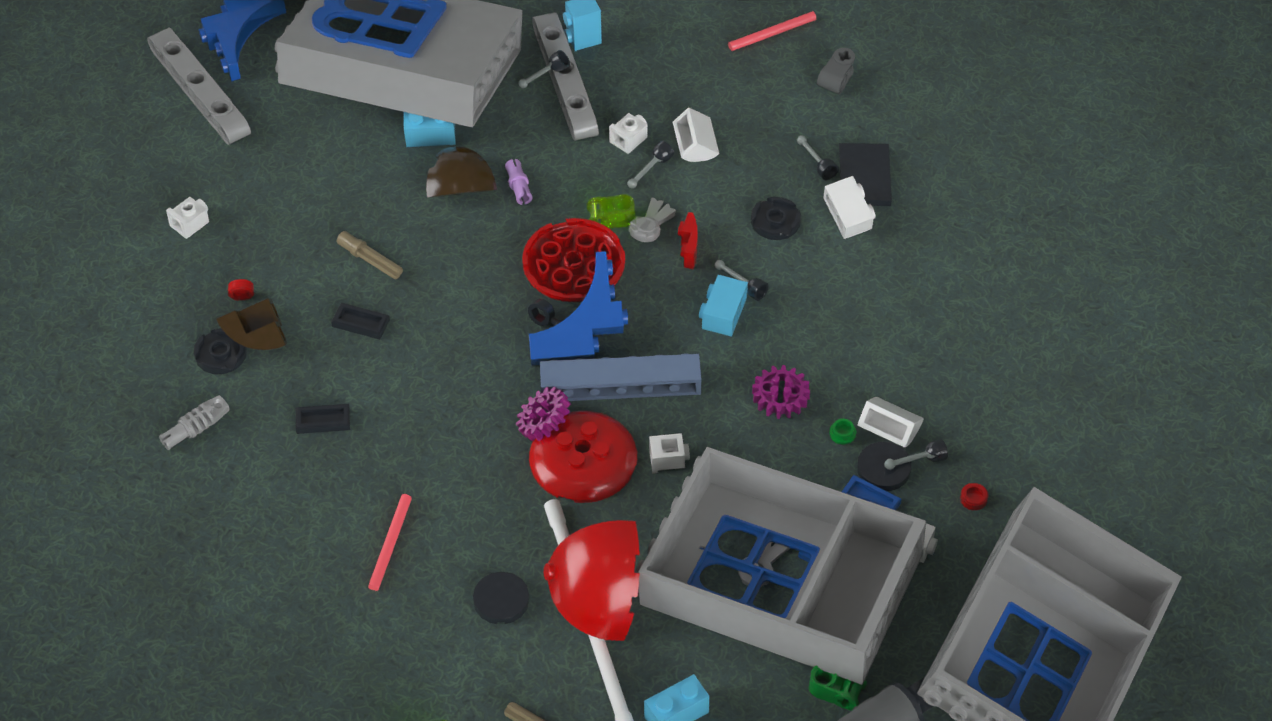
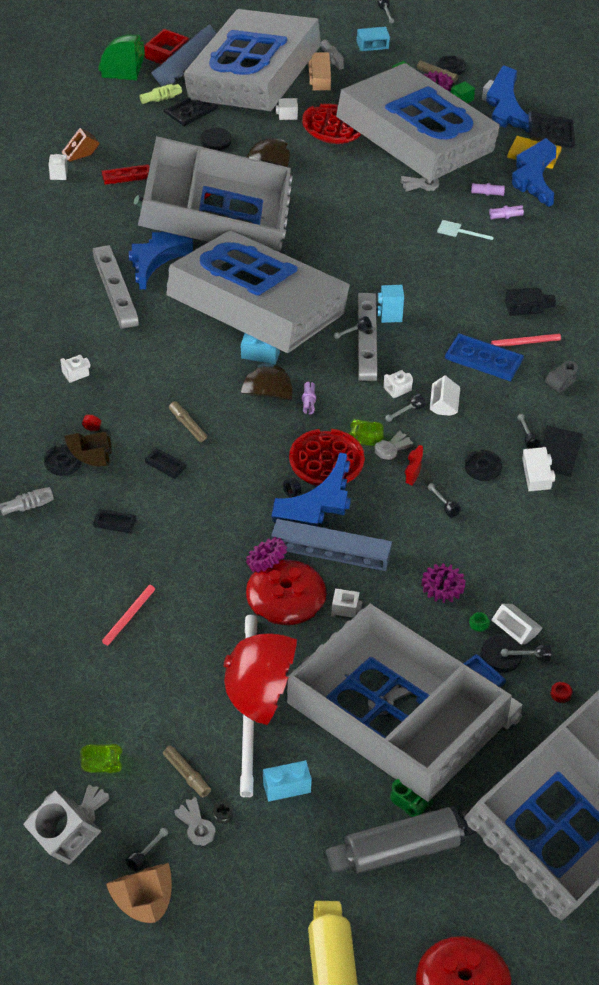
camera: 15 degrees right, 5 degrees down
(501, 597) = (191, 672): black tile -> none
(724, 305) = (423, 514): medium azure brick -> none
(726, 67) = (484, 357): none -> blue tile

